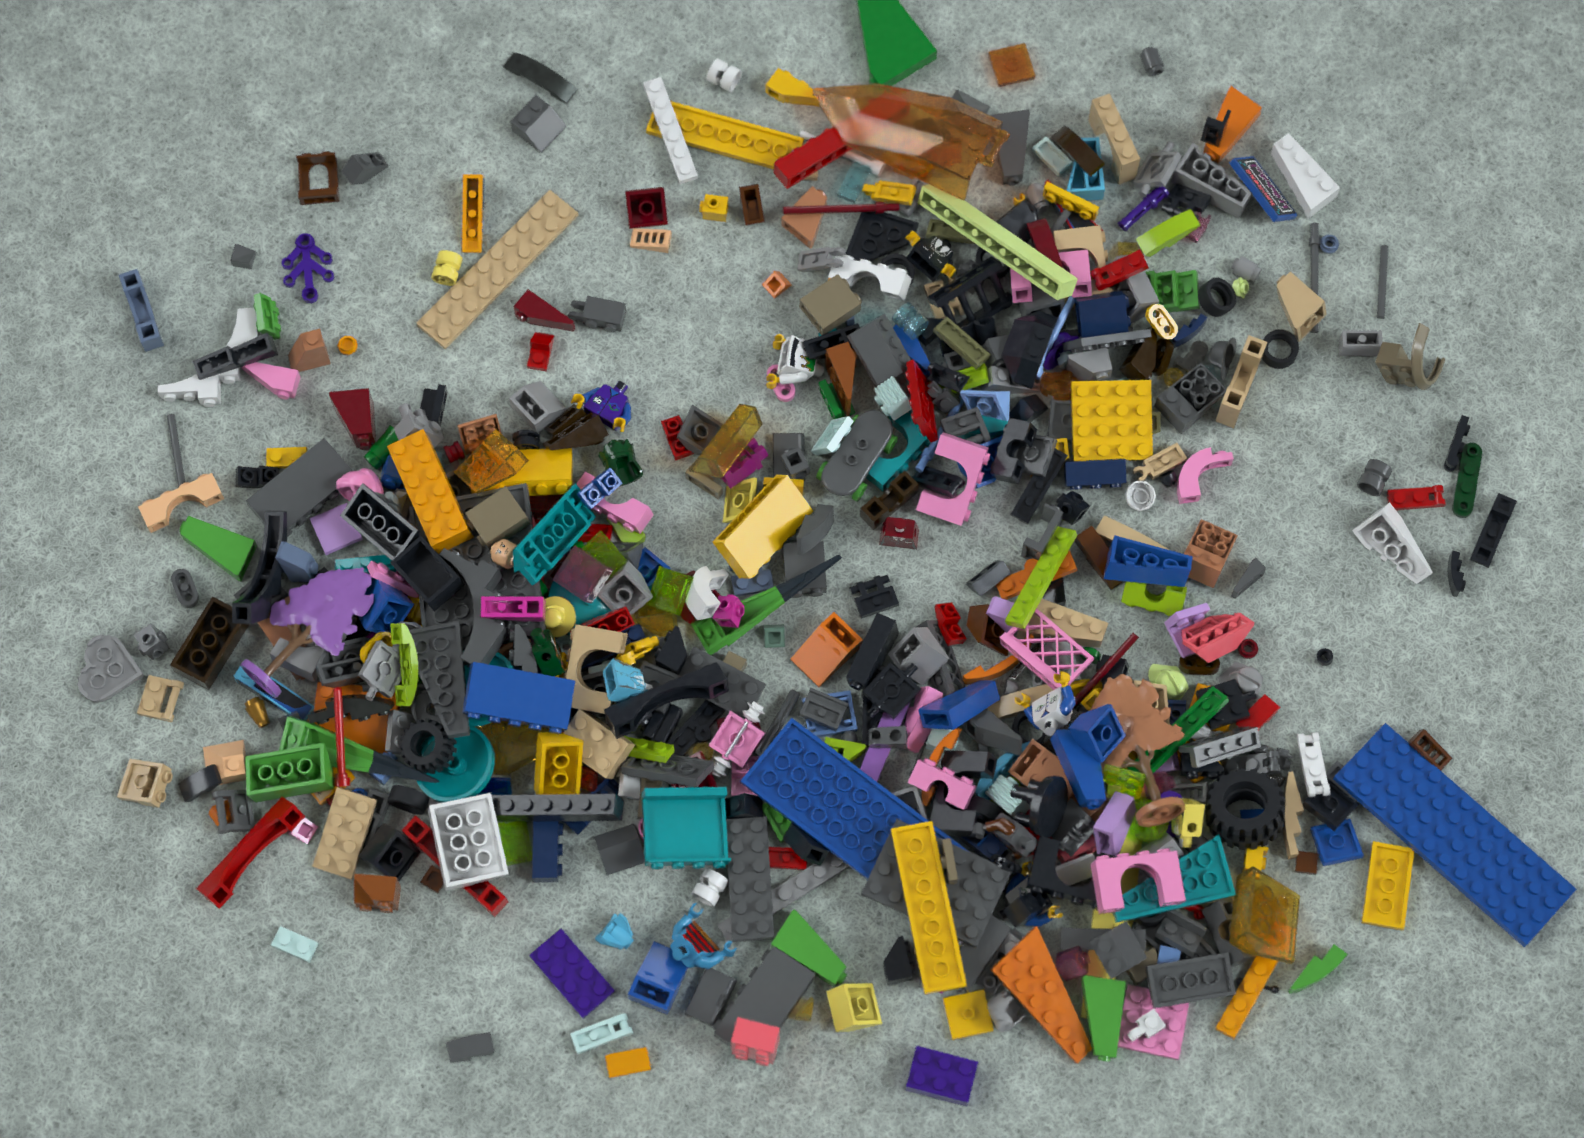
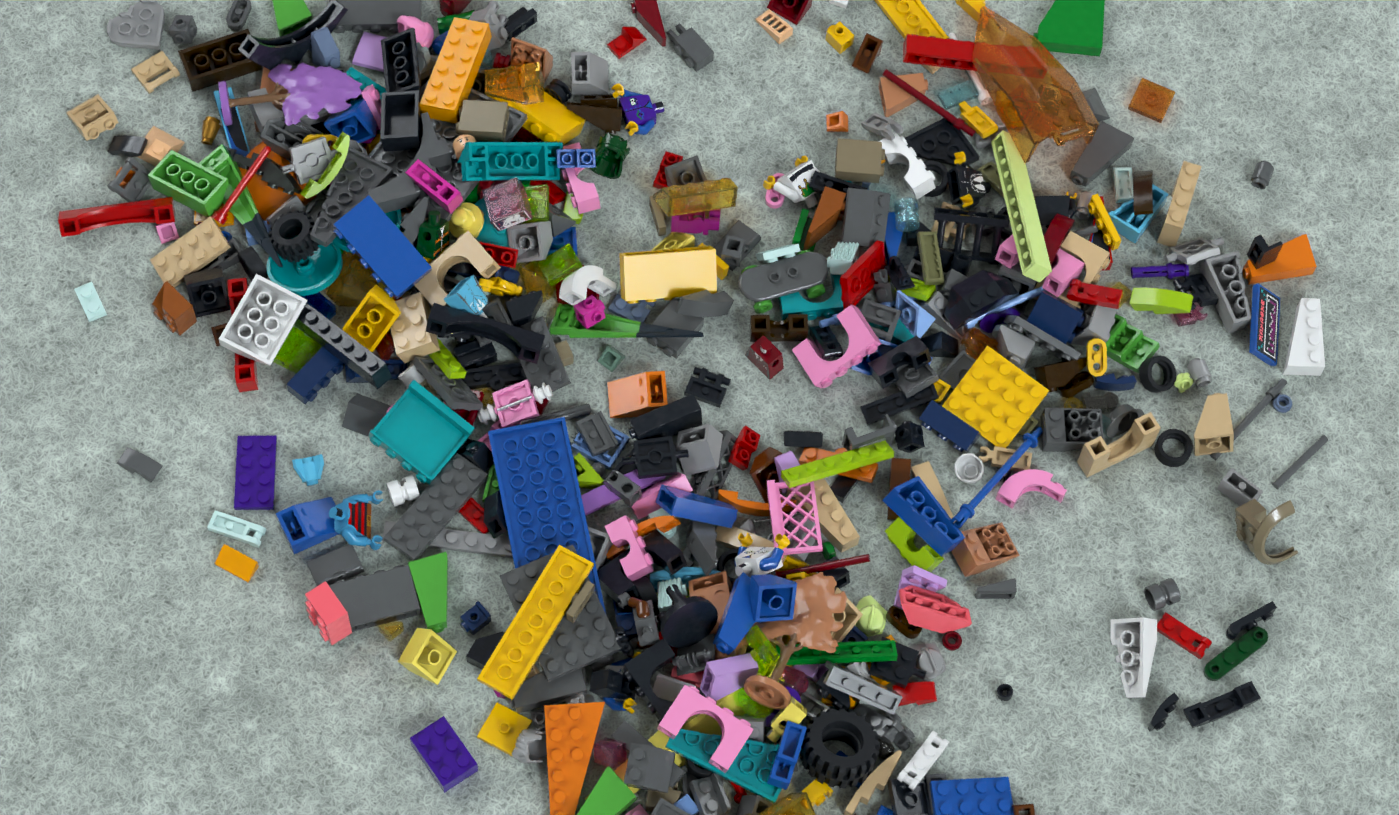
camera: 35 degrees right, 5 degrees down
(860, 953) = (474, 626): none -> dark blue brick
(1176, 533) = (967, 510): none -> blue bar
(1215, 849) = (787, 755): none -> blue slope

